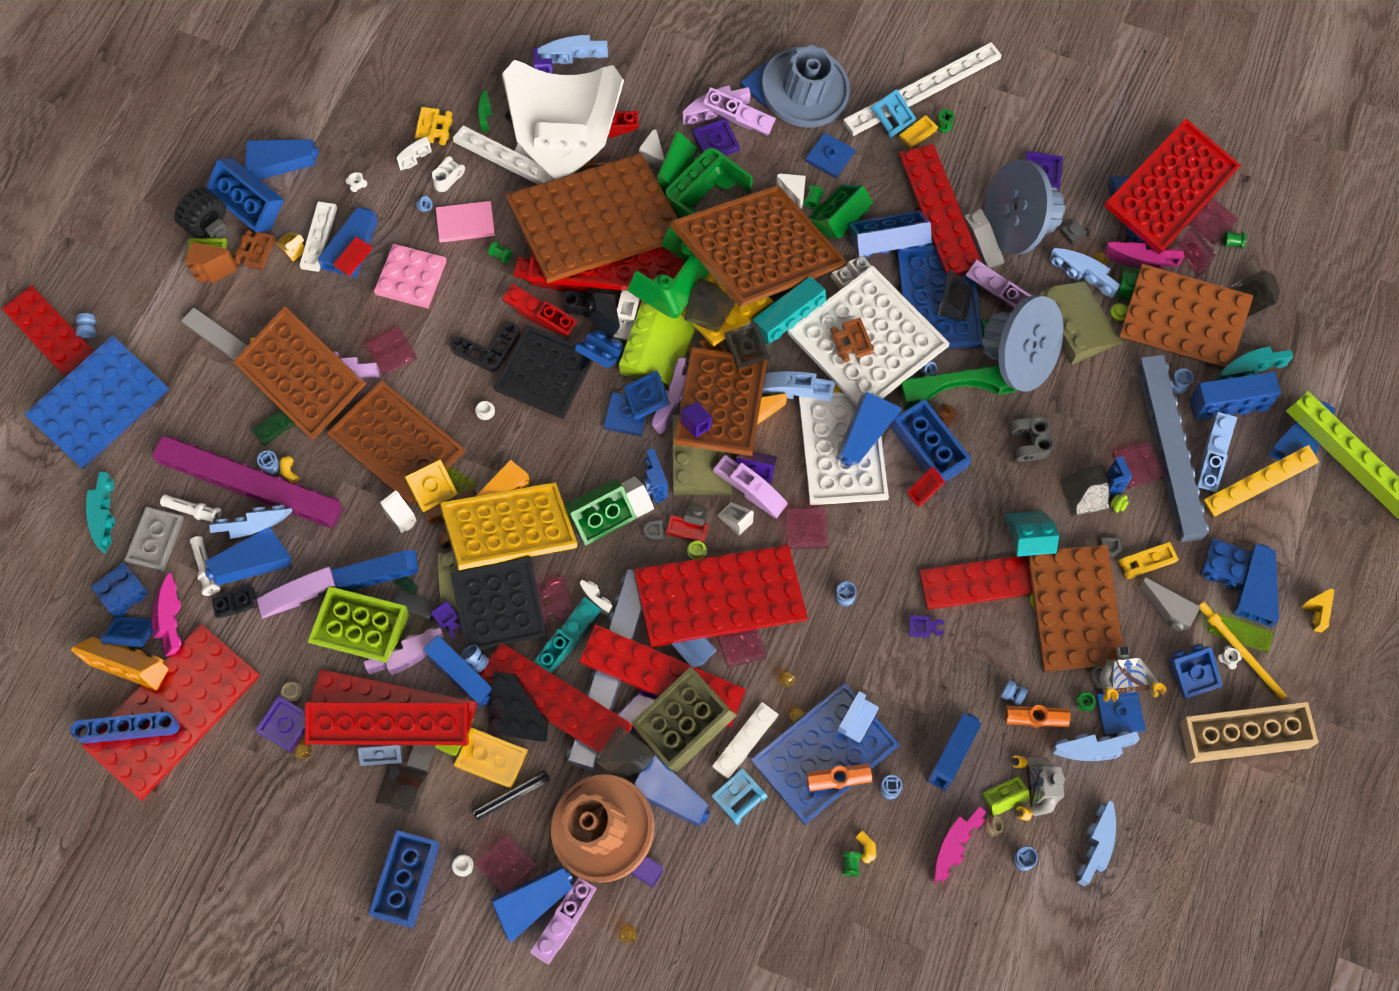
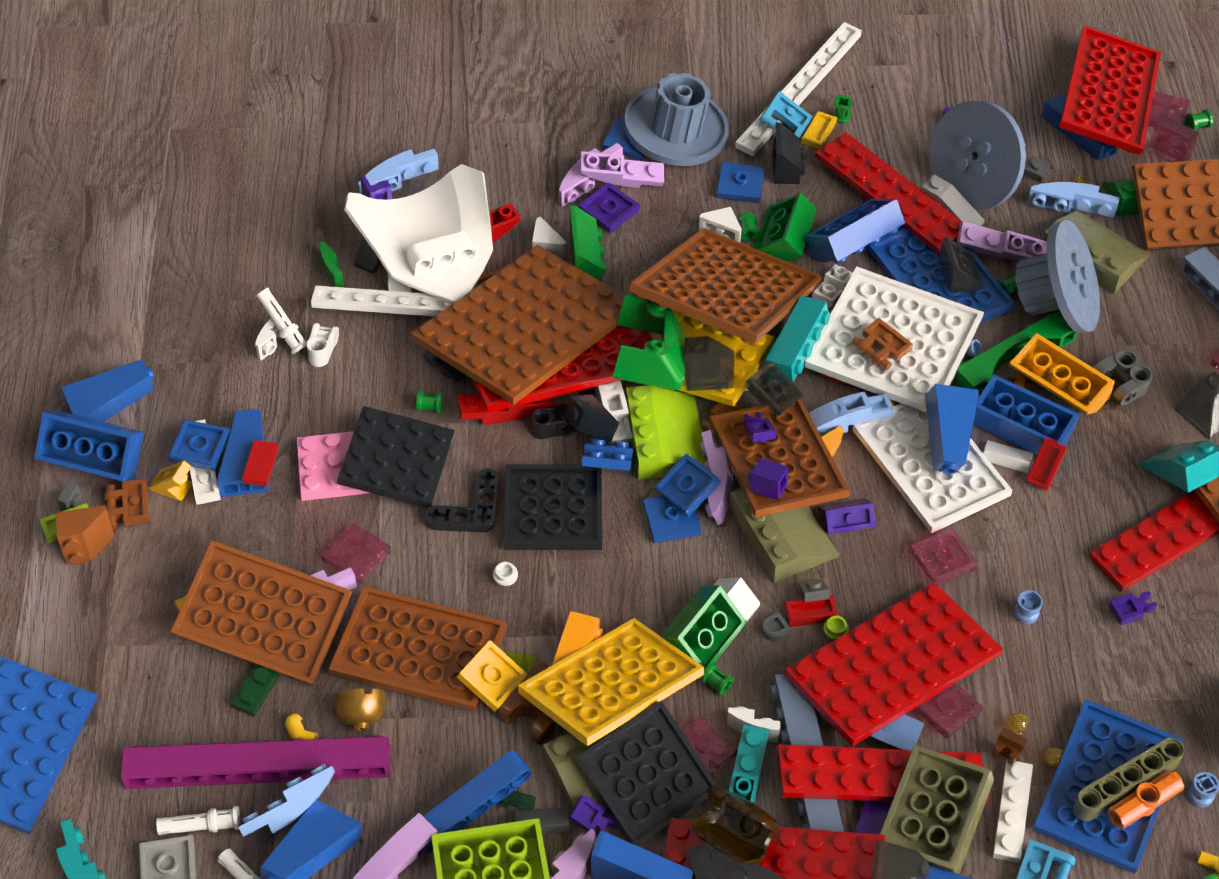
camera: 25 degrees left, 15 degrees down
(198, 211) = (42, 482): black tyre -> none
(214, 333) = (126, 614): light grey tile -> none
(271, 465) = (273, 727): medium blue wheel -> none
(319, 224) = (199, 444): none -> blue plate
(332, 471) = (360, 707): none -> pearl gold cylinder
(354, 177) = (211, 386): white plate -> none
(398, 512) = (467, 721): white slope -> none
(417, 124) = (288, 330): none -> white pin
(426, 206) = (310, 384): medium blue hinge -> none
(428, 122) = (288, 290): yellow plate -> none
(453, 287) = (396, 457): none -> black plate
(465, 221) = (369, 385): bright pink tile -> none
(473, 657) = (649, 841): medium blue wheel -> none
(528, 673) = (735, 826): none -> dark brown animal
(538, 312) = (512, 448): red slope -> none
(589, 553) = (717, 679): none -> green bush
(655, 480) = (749, 563): blue plate -> none
(701, 176) = (629, 234): green windscreen -> none
(717, 373) = (759, 429): none -> dark purple plate
(736, 517) = (860, 575): white slope -> none
(752, 485) = (858, 531): lavender slope -> none
(769, 693) = (1009, 745): none -> reddish brown tile
(845, 752) = (1120, 786): none -> olive beam
(858, 718) = (1124, 728): light blue panel -> none
(875, 147) = (787, 156): none -> black slope
(903, 466) = (1008, 456): none -> white slope
(980, 420) = (1063, 374): none -> light orange slope
(1118, 312) = (1131, 226): lime plate -> none
(1135, 254) = (1117, 167): dark pink slope -> none

